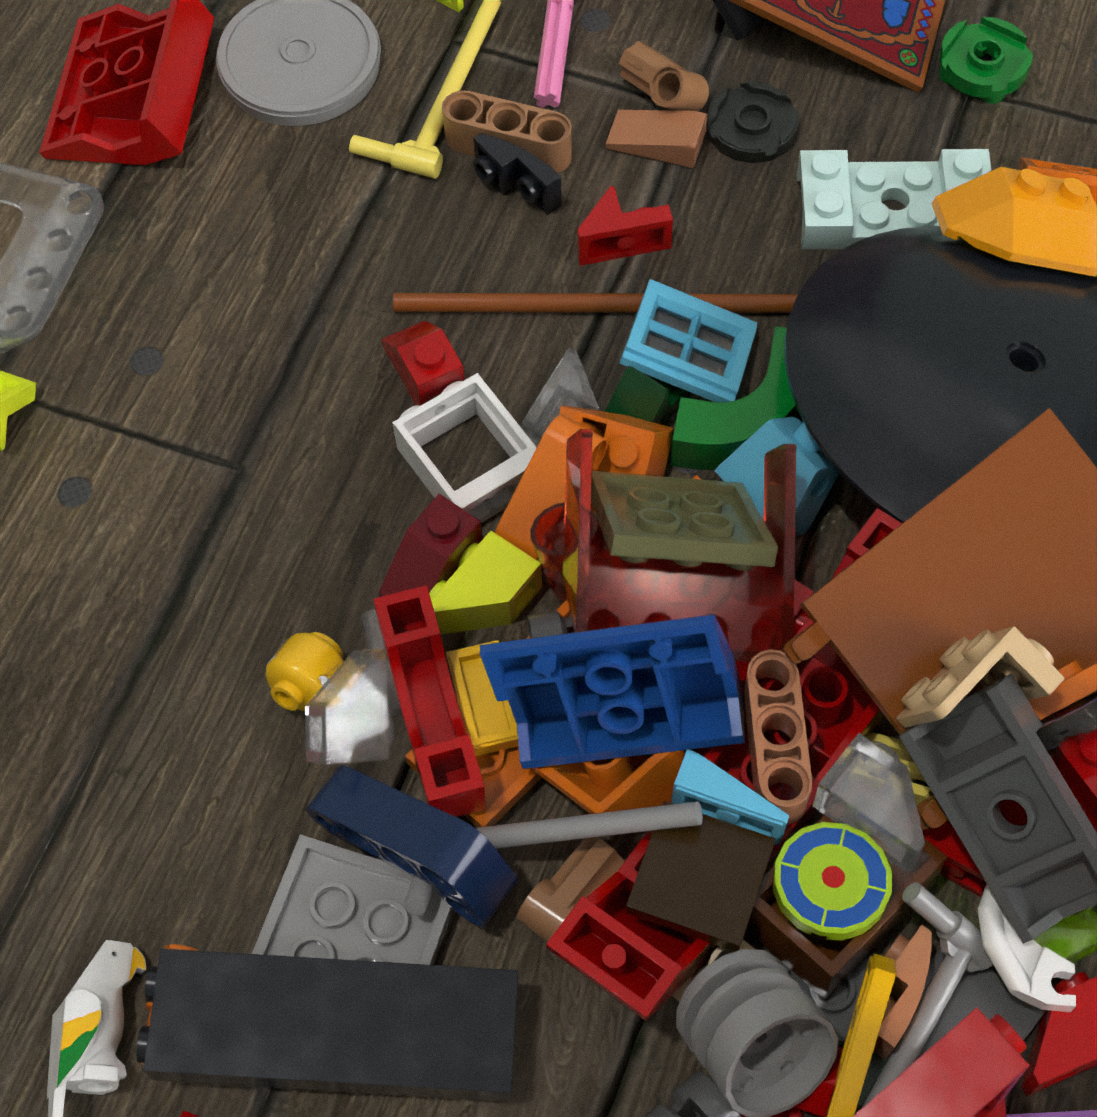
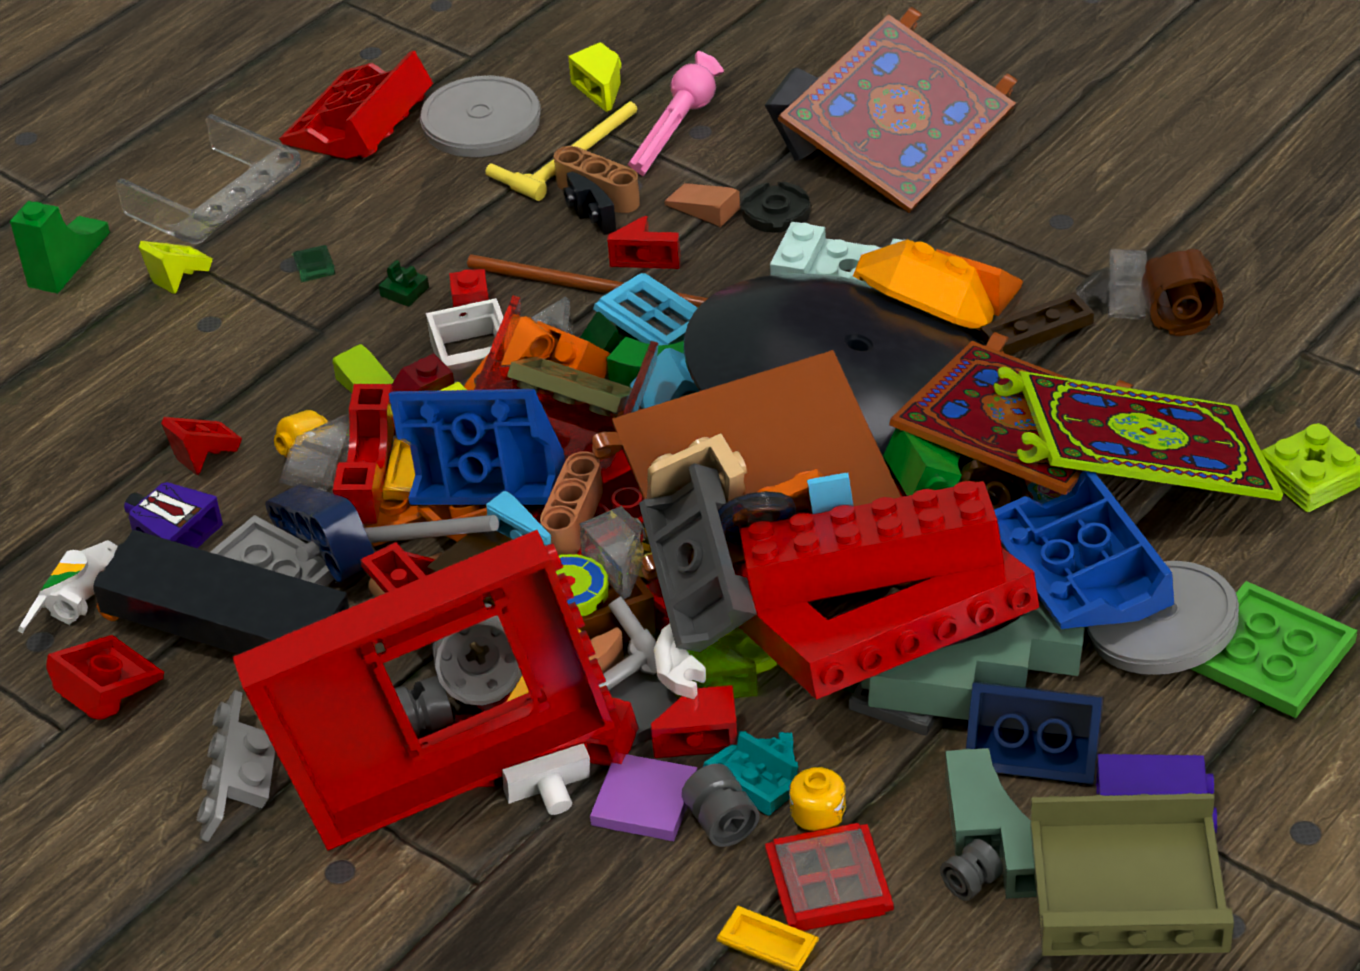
camera: 20 degrees right, 20 degrees down
(161, 715) = (195, 438): none -> red slope
(179, 354) = (313, 263): none -> clear green tile
(181, 874) = (175, 514): none -> dark purple torso
(322, 366) = (403, 284): none -> dark green tile
(344, 541) = (359, 367): none -> lime slope
(663, 79) = (721, 167): medium nougat piece -> none
(985, 78) = (964, 198): green plate -> none

